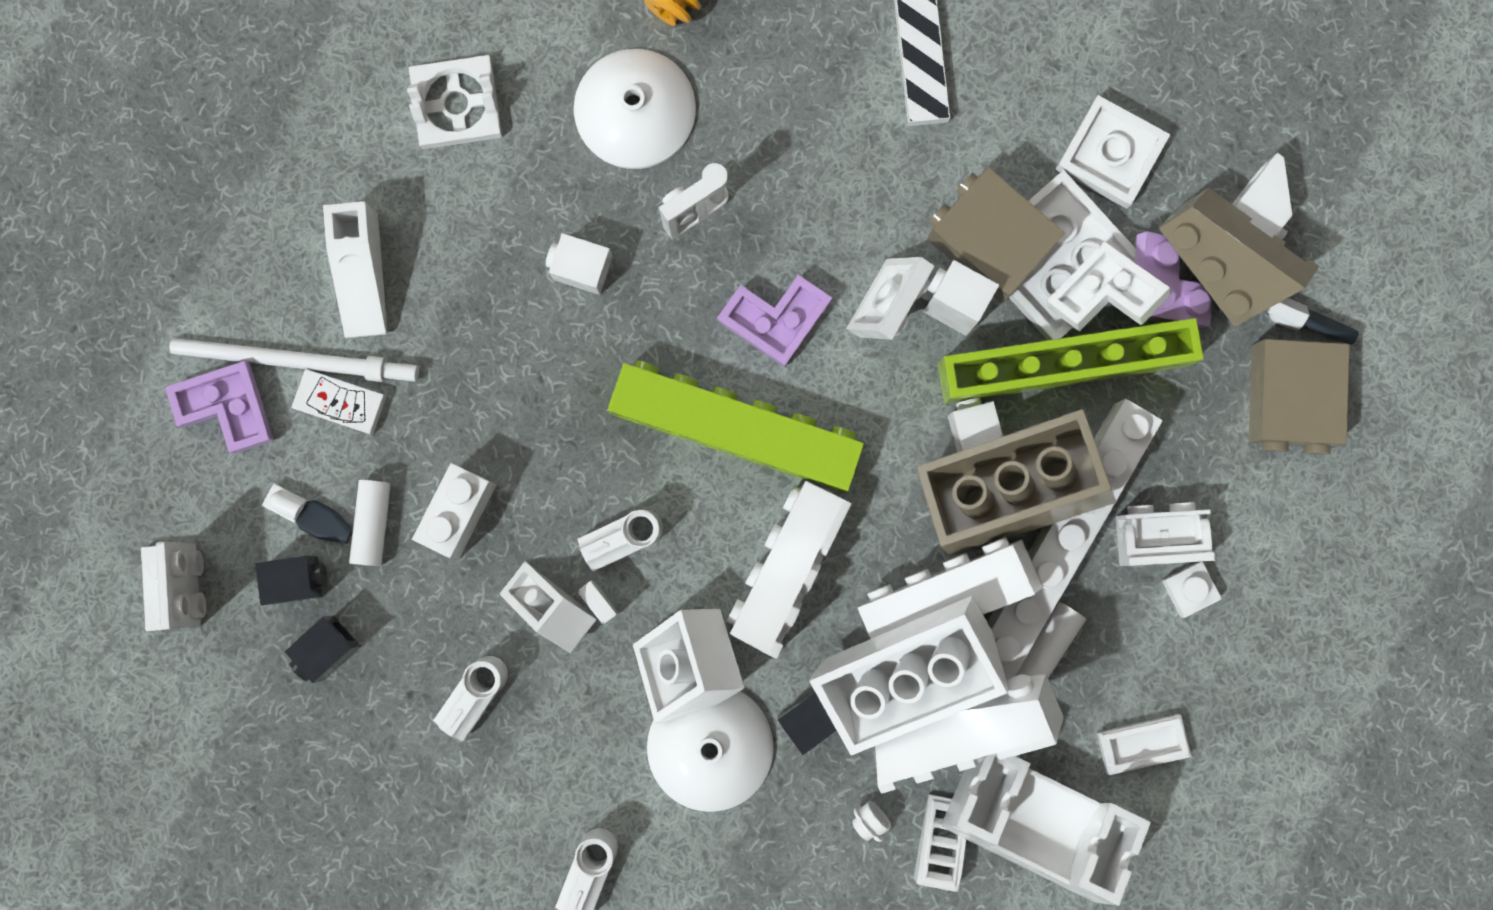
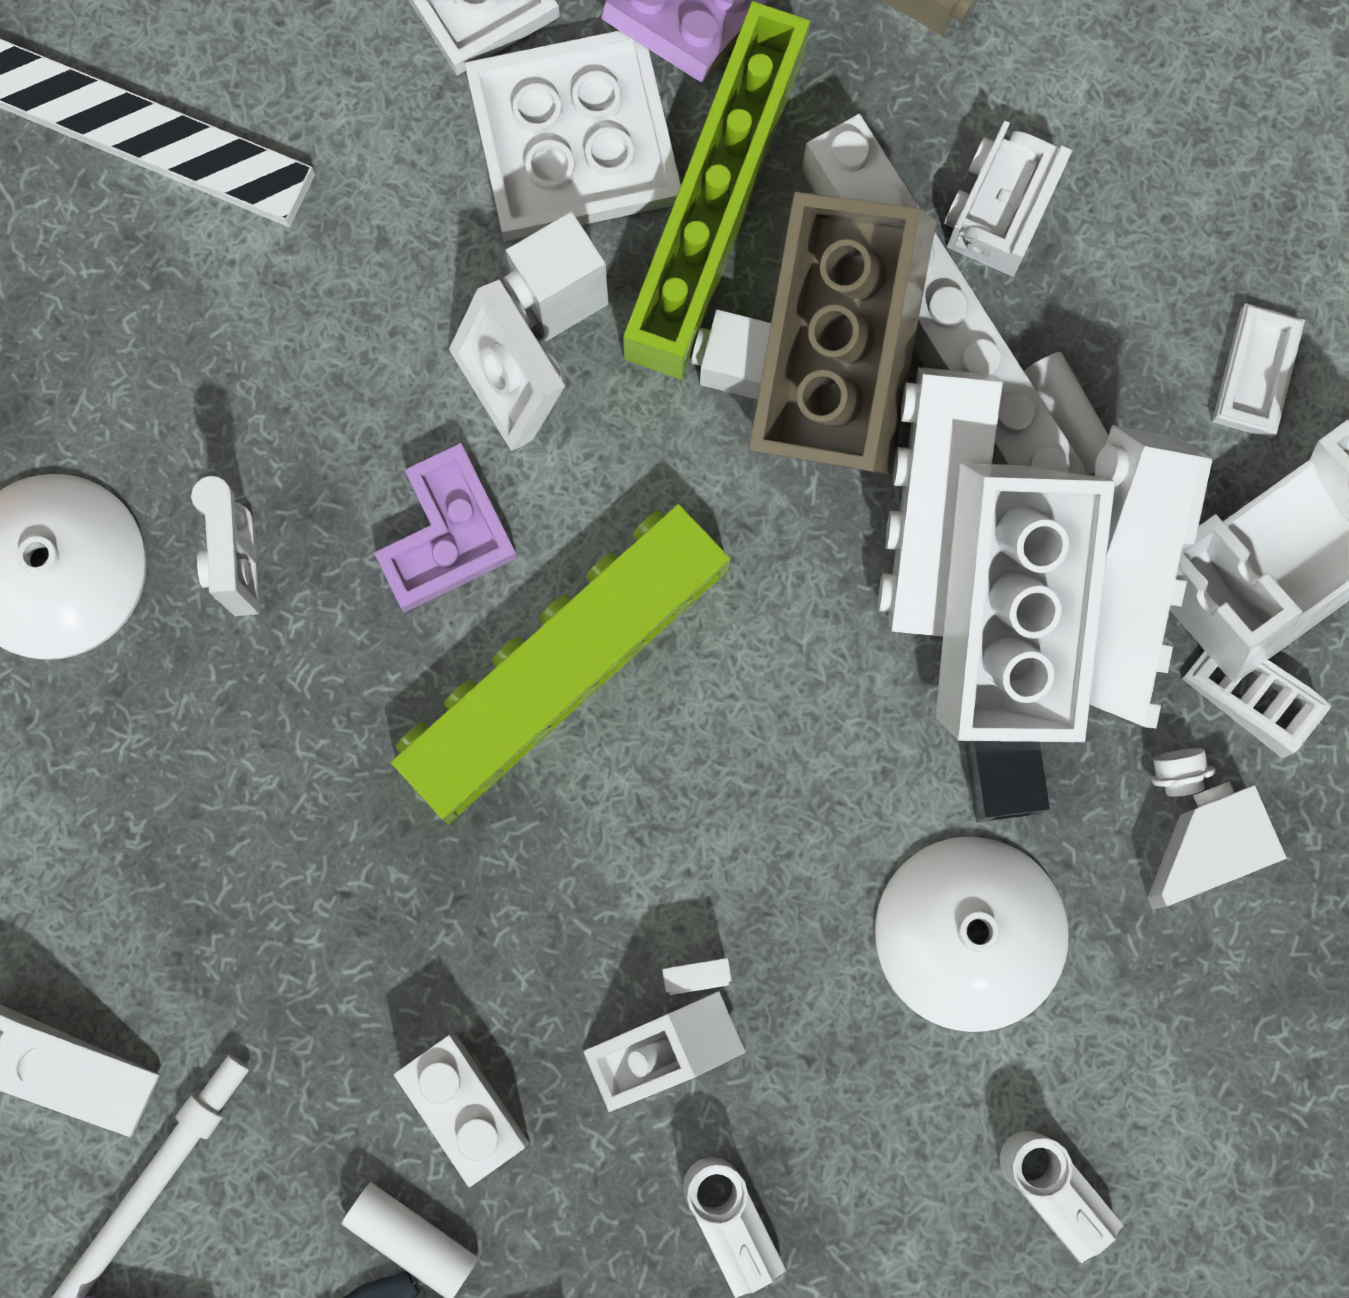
camera: 65 degrees left, 5 degrees down
(339, 401) = (214, 1195): white tile -> none
(579, 263) = (218, 752): white brick -> none
(617, 540) = (625, 907): white piece -> none
(687, 664) = (846, 899): white slope -> none
(789, 568) = (790, 695): white wedge -> none
(836, 864) = (1215, 845): none -> white slope
(994, 232) = (495, 185): dark tan brick -> none
(1104, 279) = (640, 78): white plate -> none
(1191, 589) = (1091, 204): white plate -> none

